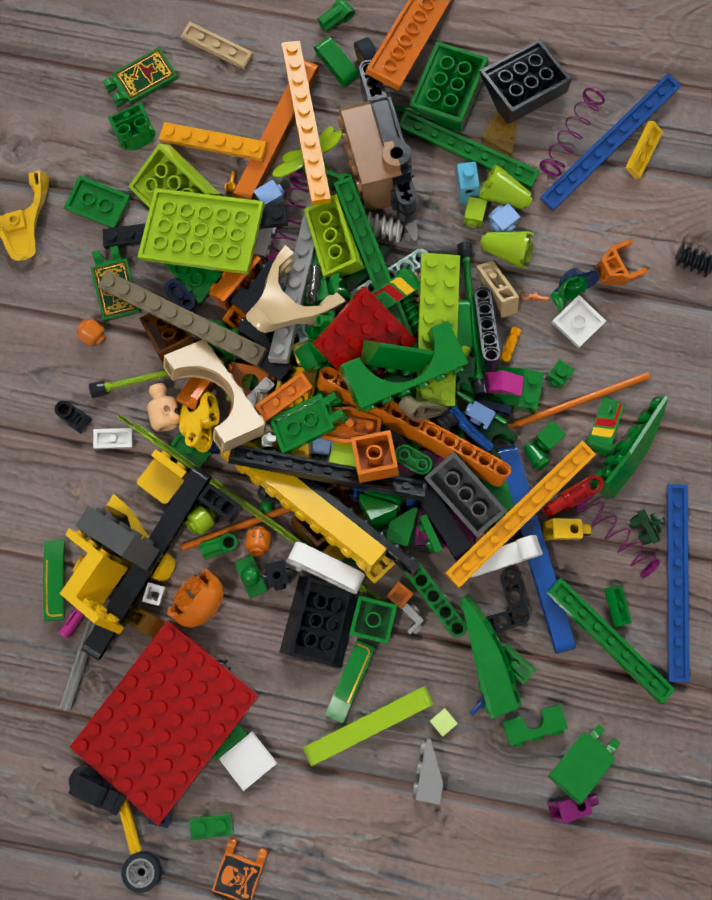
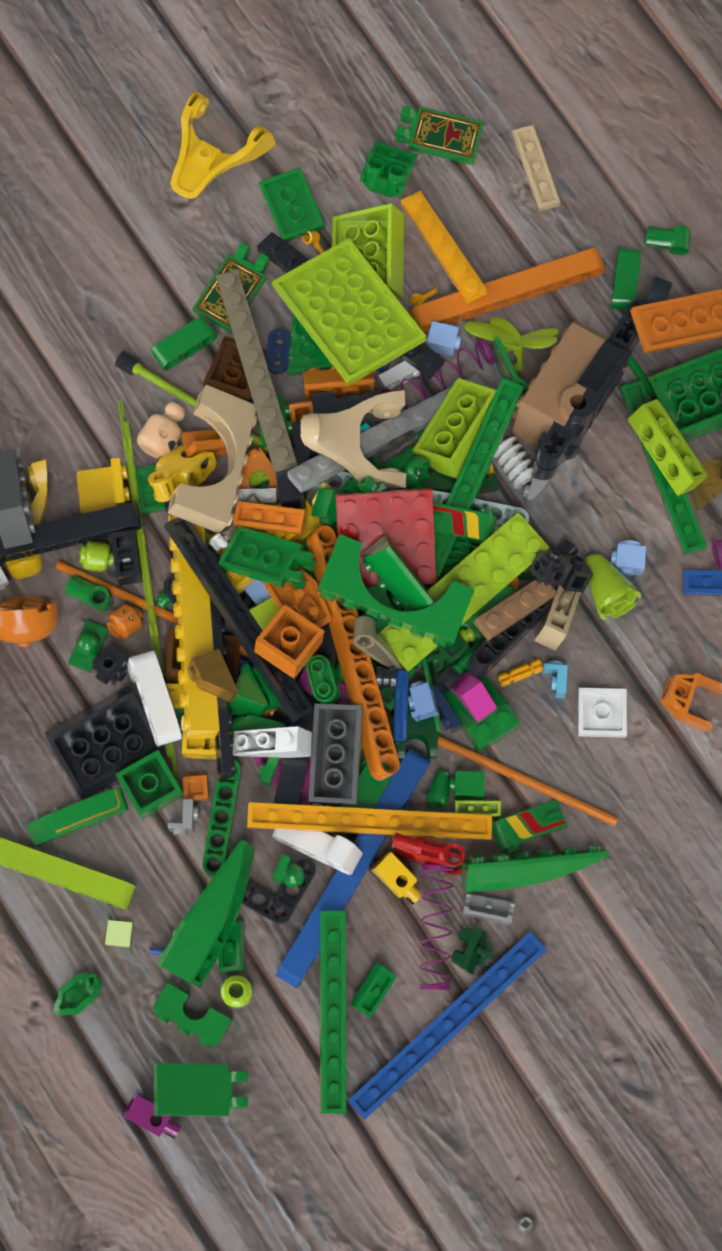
camera: 40 degrees right, 5 degrees down
(75, 417) = (83, 367): black piece -> none
(90, 332) = (171, 309): orange head -> none
(113, 438) = (96, 416): white plate -> none
(119, 344) = (184, 343): none -> green beam
(133, 210) = (313, 239): none -> light orange hand
(306, 123) = (536, 305): light orange plate -> none
(350, 520) = (212, 675): none -> pearl gold slope
(422, 524) = (273, 742): none -> white slope
(430, 782) = (55, 969): light grey slope -> none
(458, 781) = (77, 994): none -> green arm
(466, 179) = (631, 492): medium azure torso -> none
(471, 132) = (667, 447): none -> lime brick
(472, 266) = (550, 568): none -> black brick
(474, 212) = (609, 527): lime brick -> none
(476, 309) = (514, 609): none -> medium nougat plate
(484, 258) = (579, 574): none -> black brick
(504, 189) = (657, 532): lime cone -> none
(504, 589) = (289, 874): none -> green tile
(535, 297) = (587, 653): orange hand -> none
(537, 326) = (559, 681): none -> medium azure bracket
(546, 685) = (236, 992): none -> lime head
(559, 374) = (536, 742): green bracket -> none
(567, 444) = (477, 807): none -> lime piece
(573, 284) = (629, 674): green hair -> none
(632, 494) = (488, 908): none -> light grey hinge

